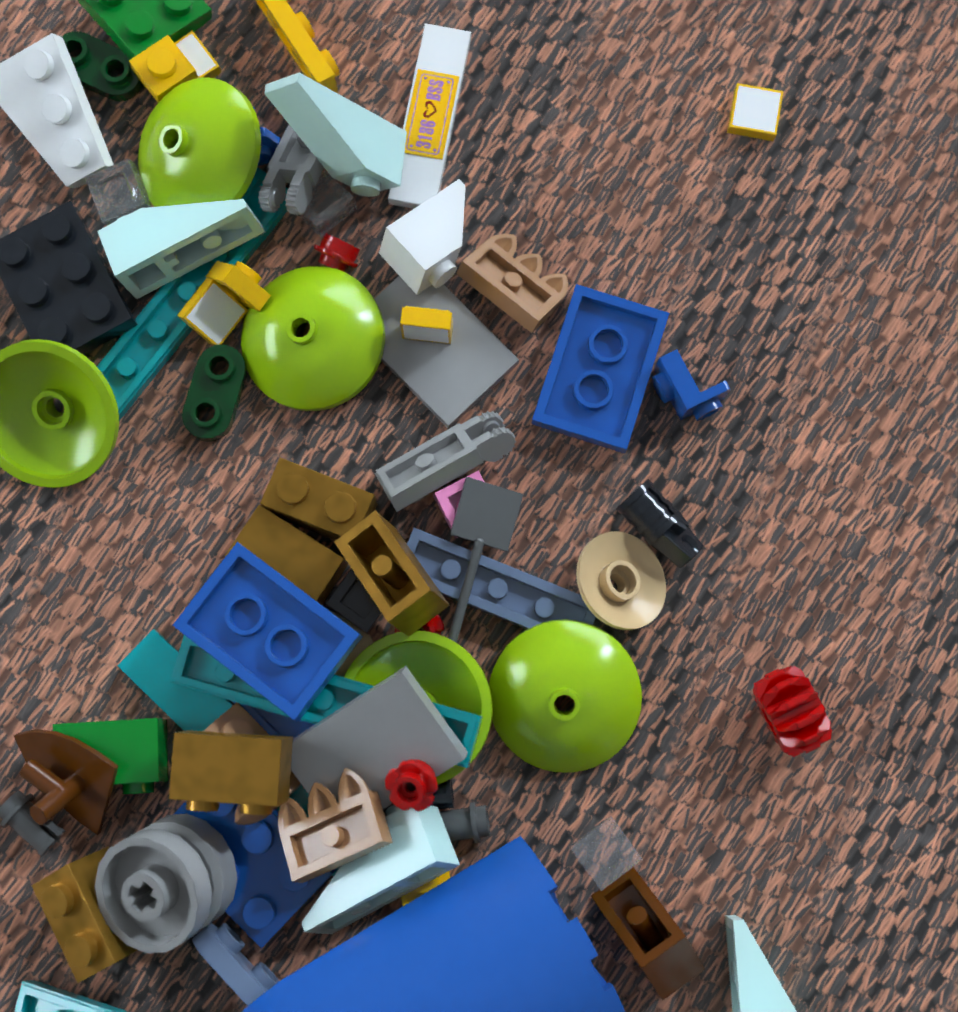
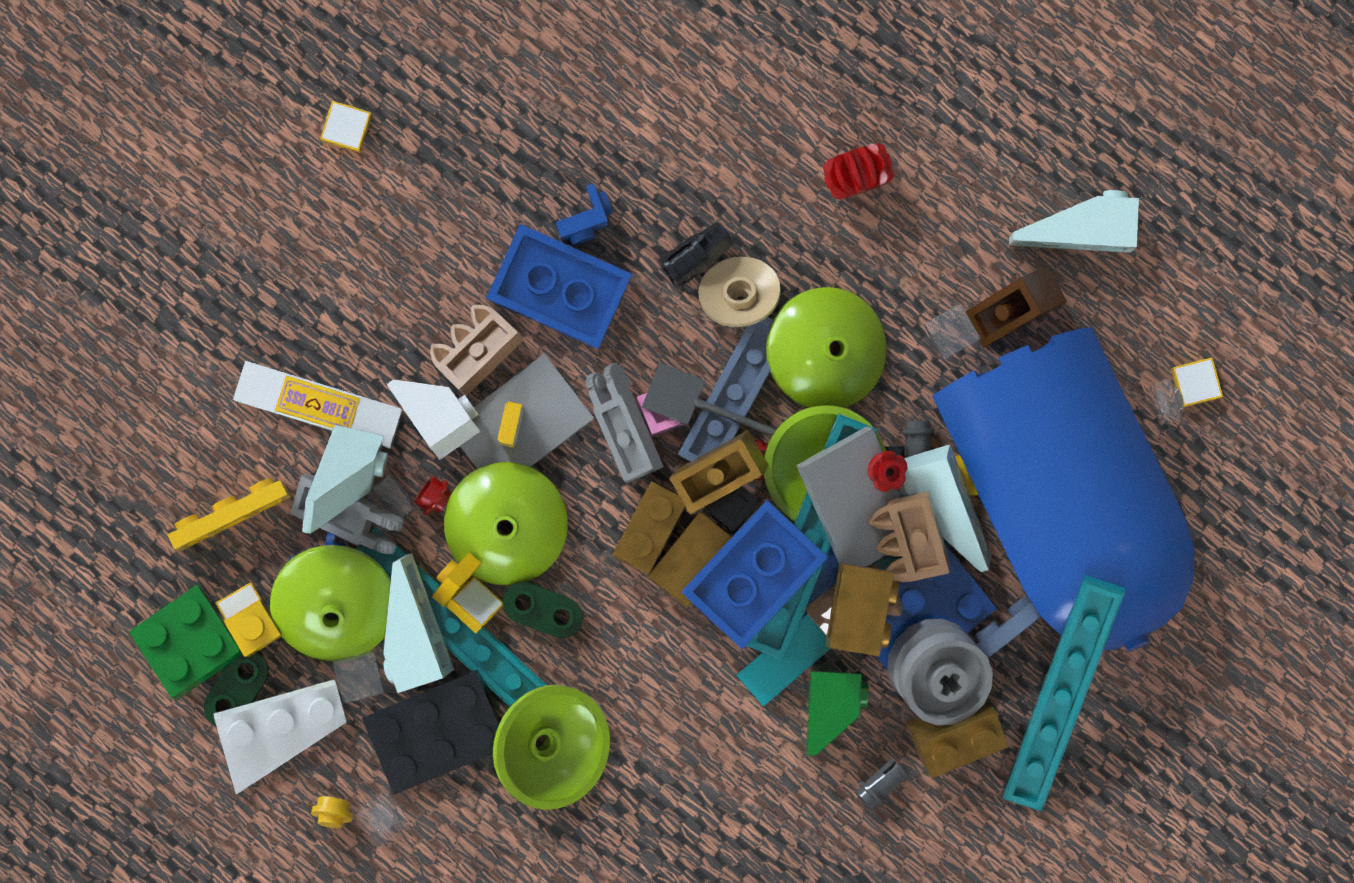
camera: 85 degrees left, 5 degrees up
(68, 775) = (847, 747): reddish brown shield -> none

